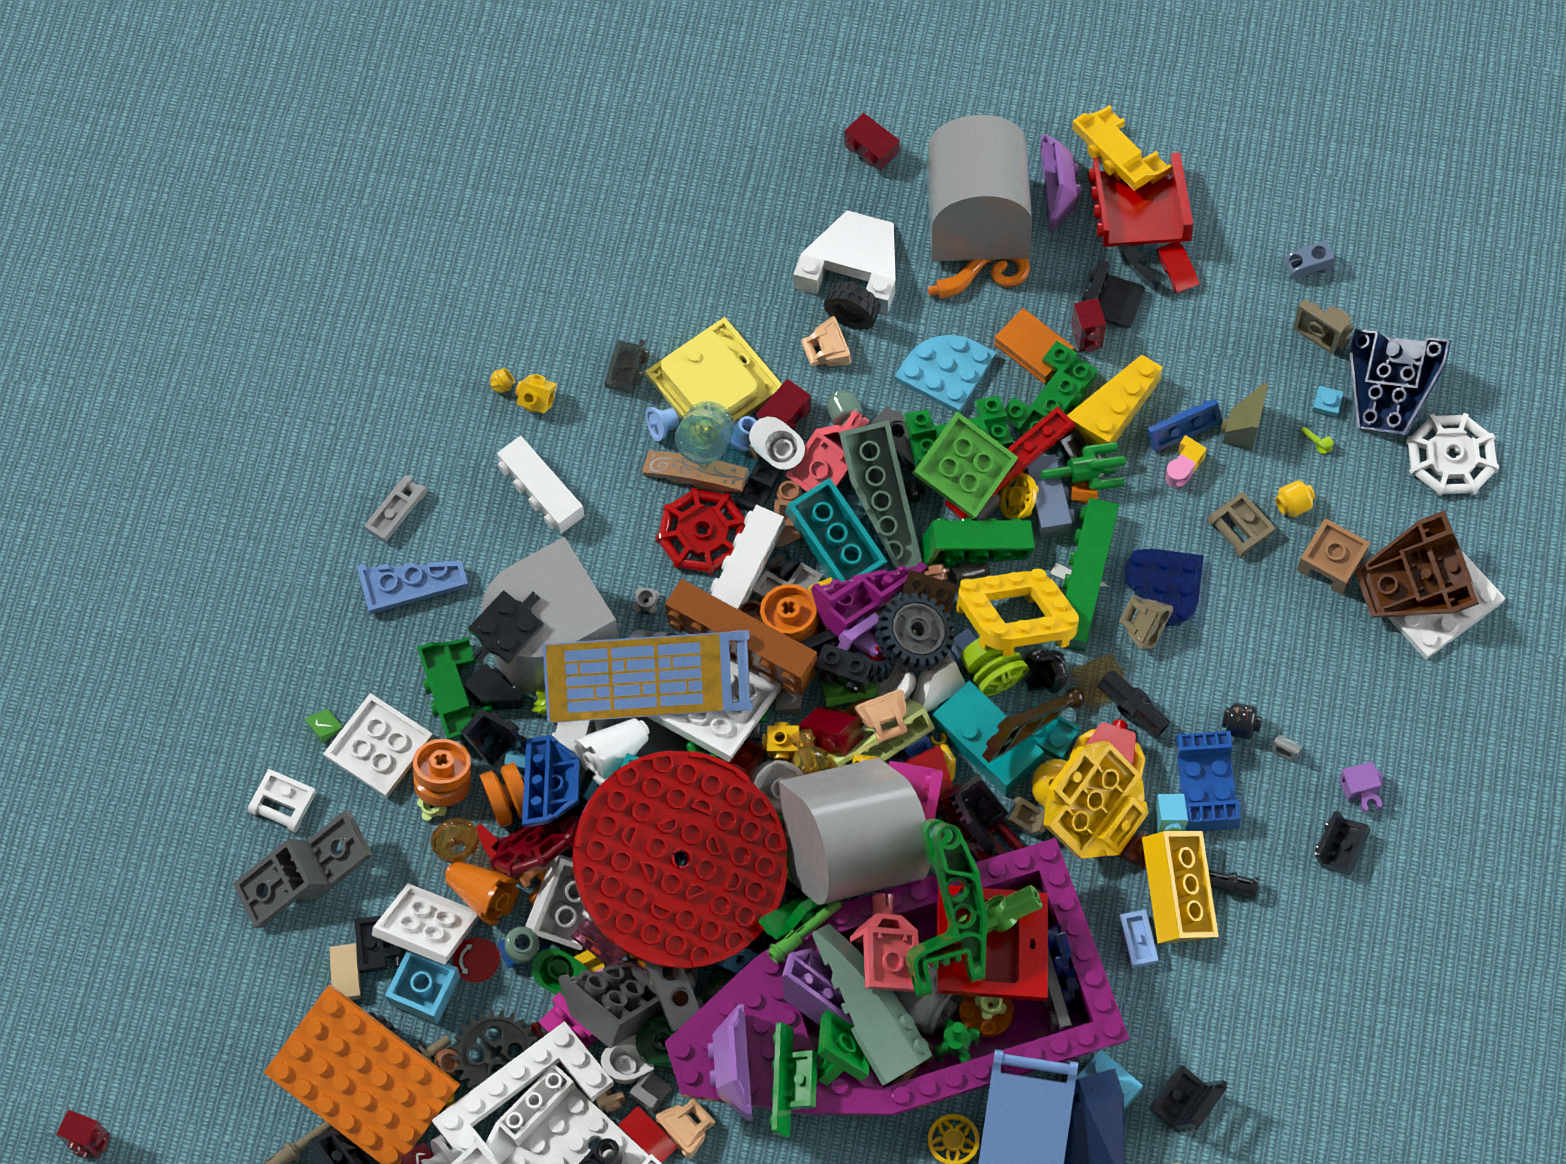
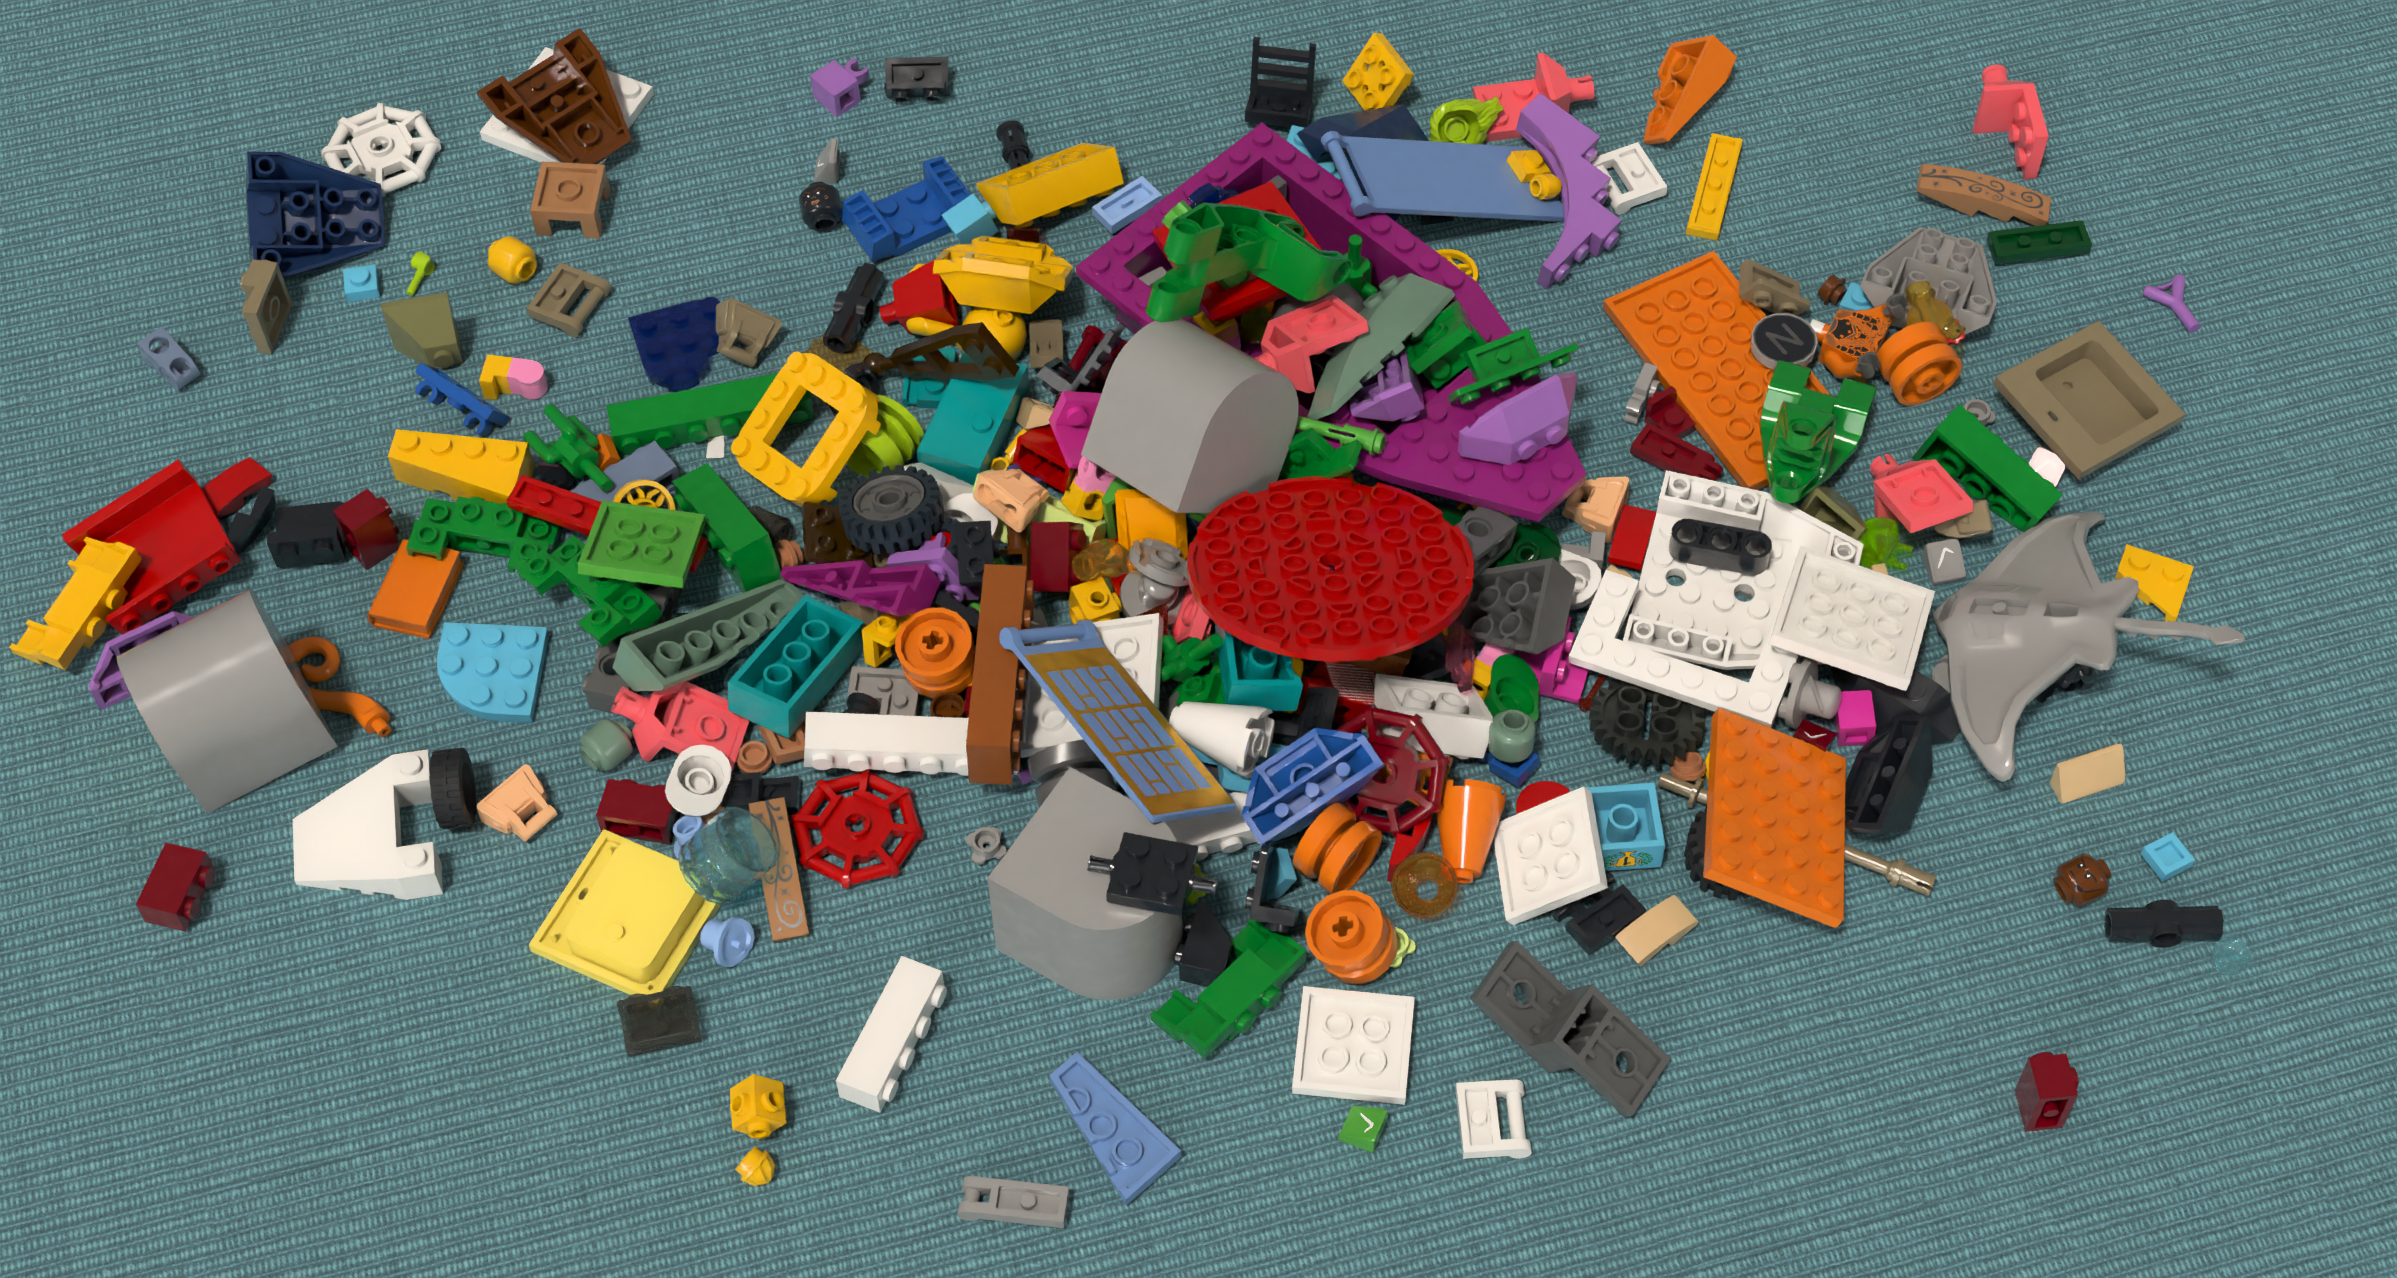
camera: 120 degrees left, 10 degrees down
(958, 773) = (1033, 413): none -> tan slope

